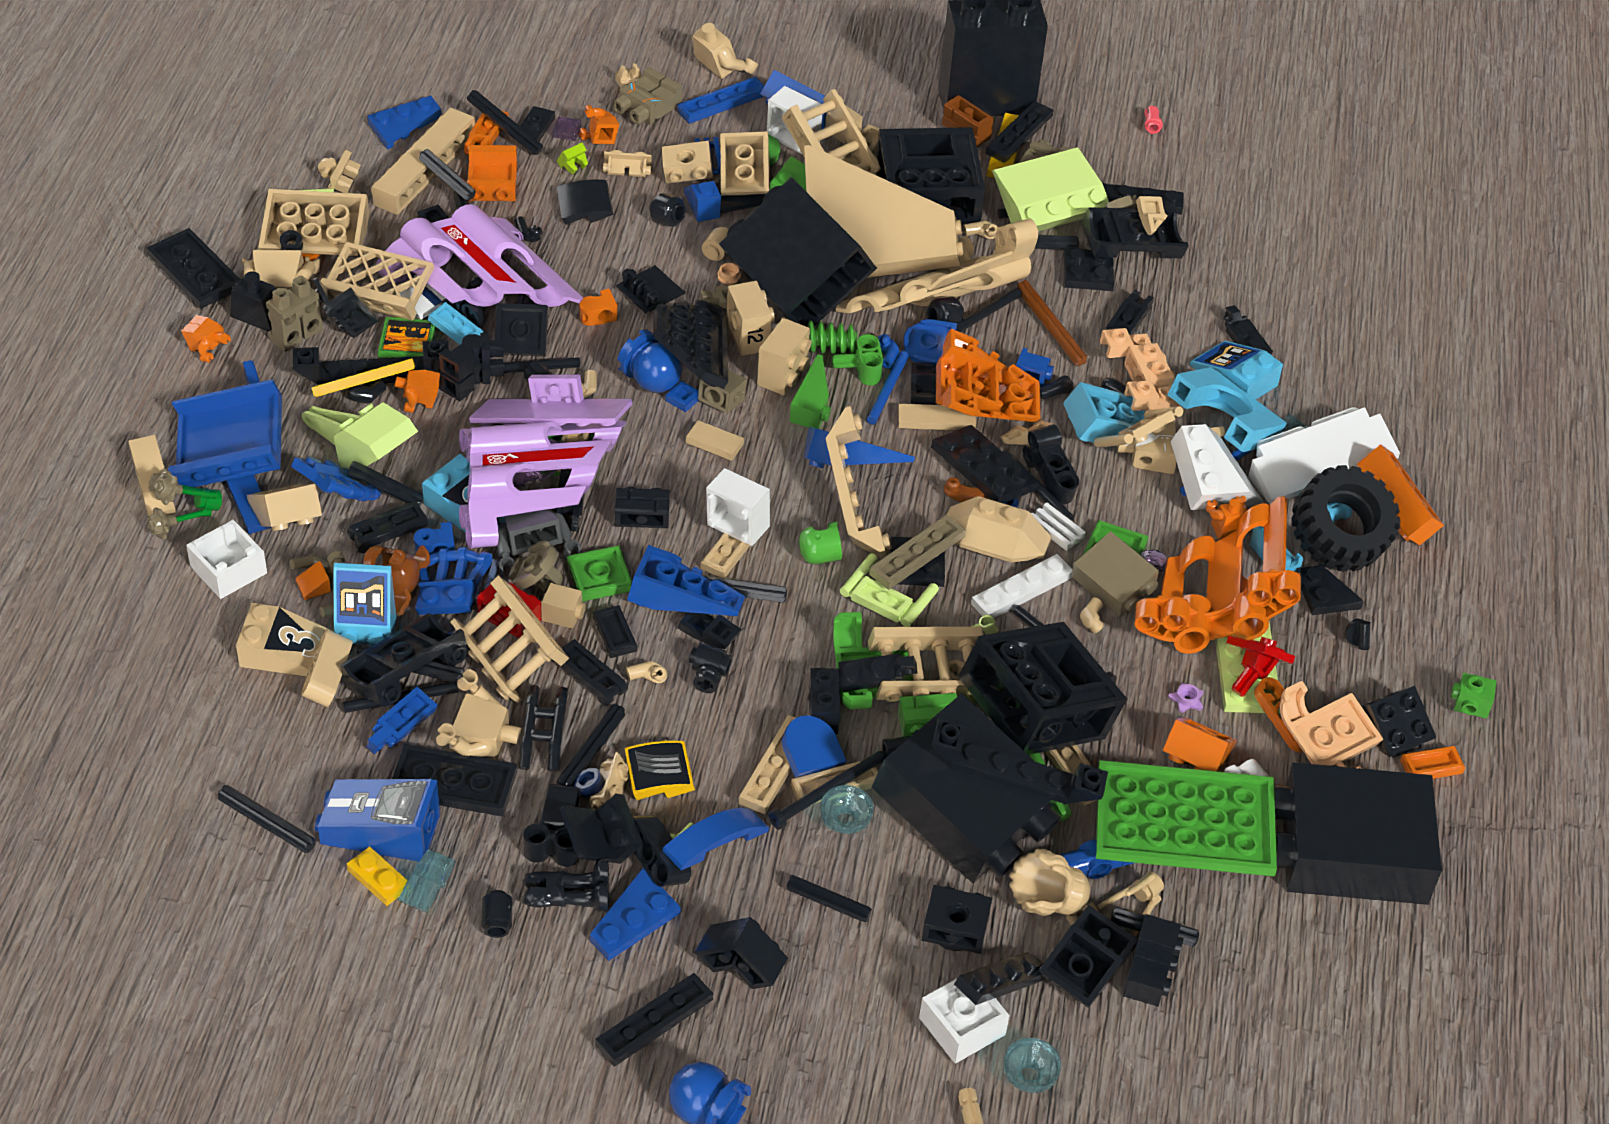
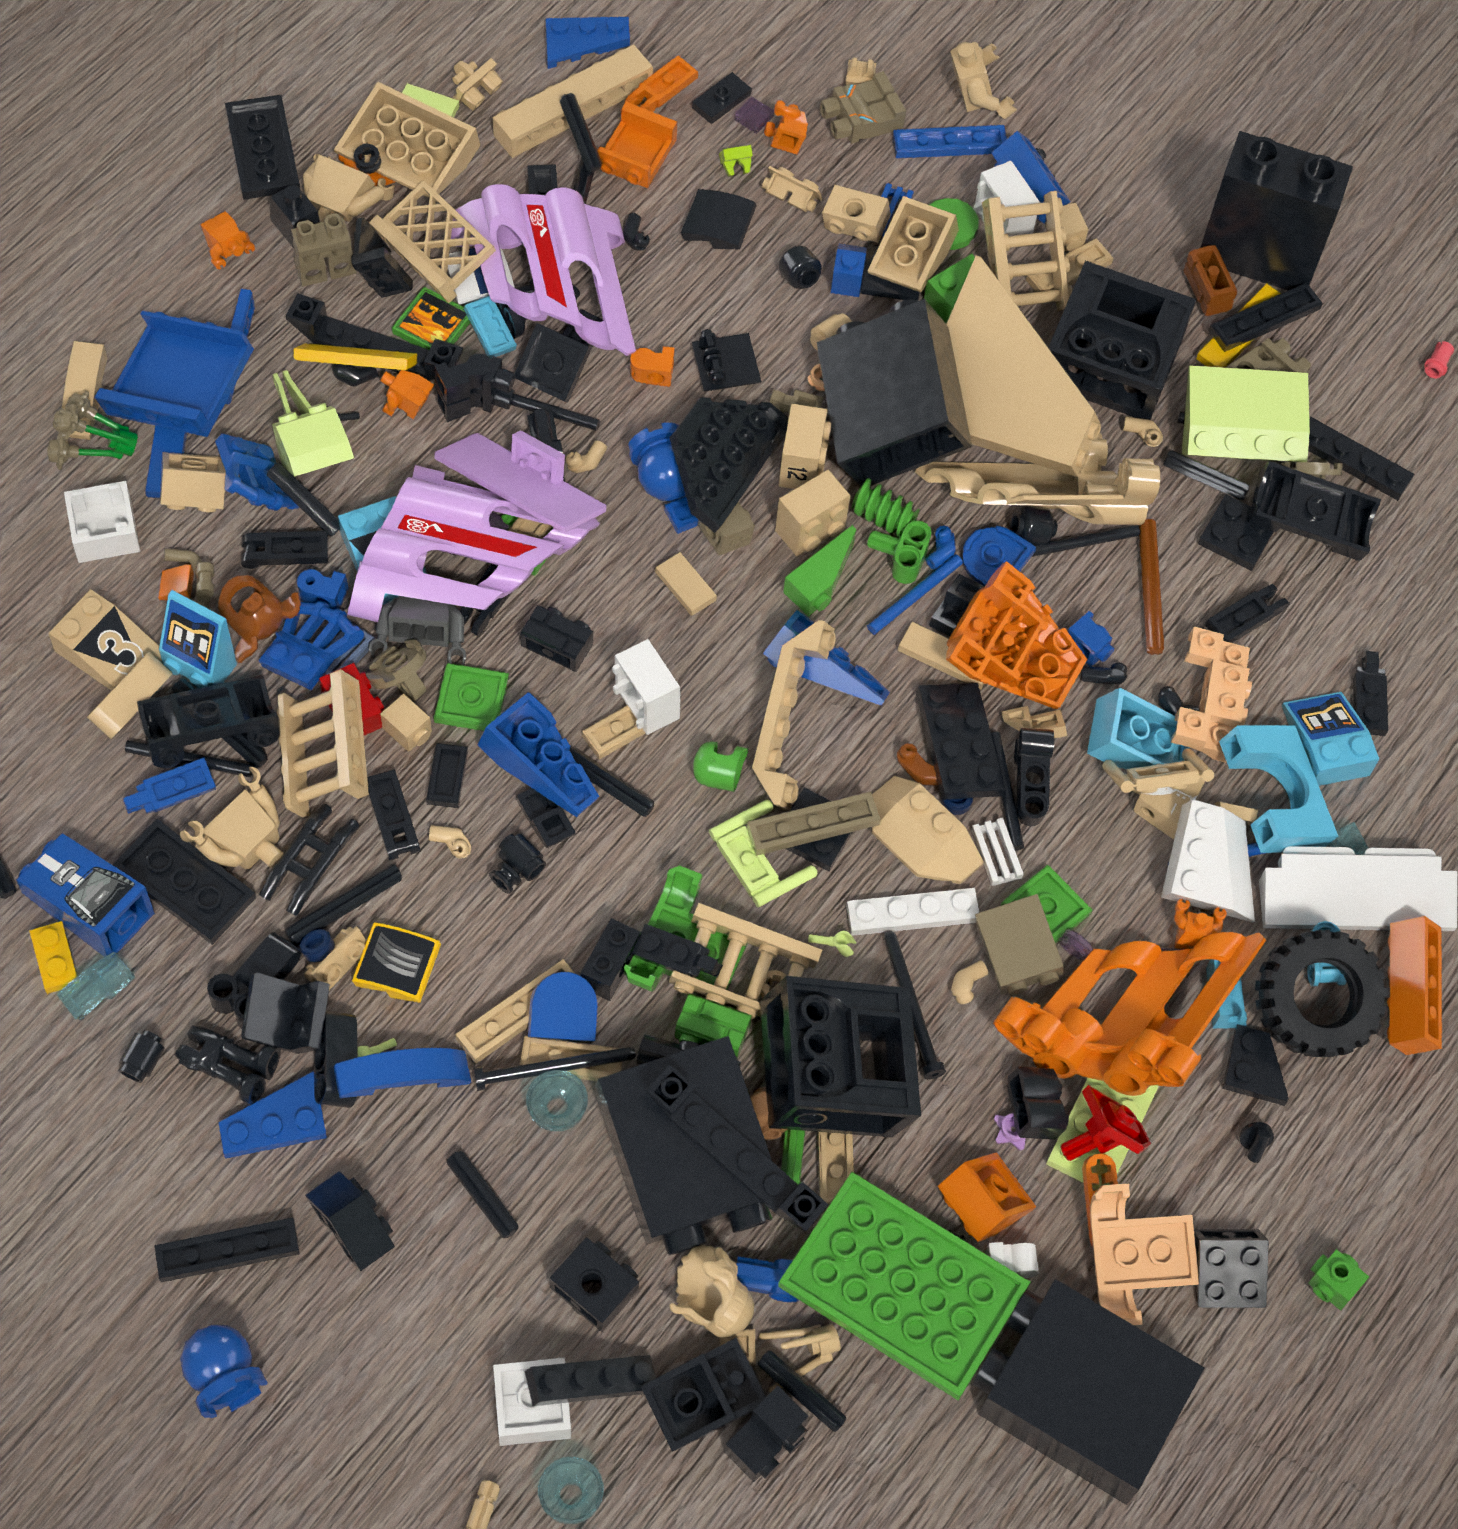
camera: 25 degrees right, 15 degrees up
(504, 122) = (683, 85): black axle -> none
(1151, 212) = (1343, 496): tan slope -> none
(1195, 669) = (1037, 1103): none -> black brick
(1434, 762) = (1240, 1337): orange tile -> none

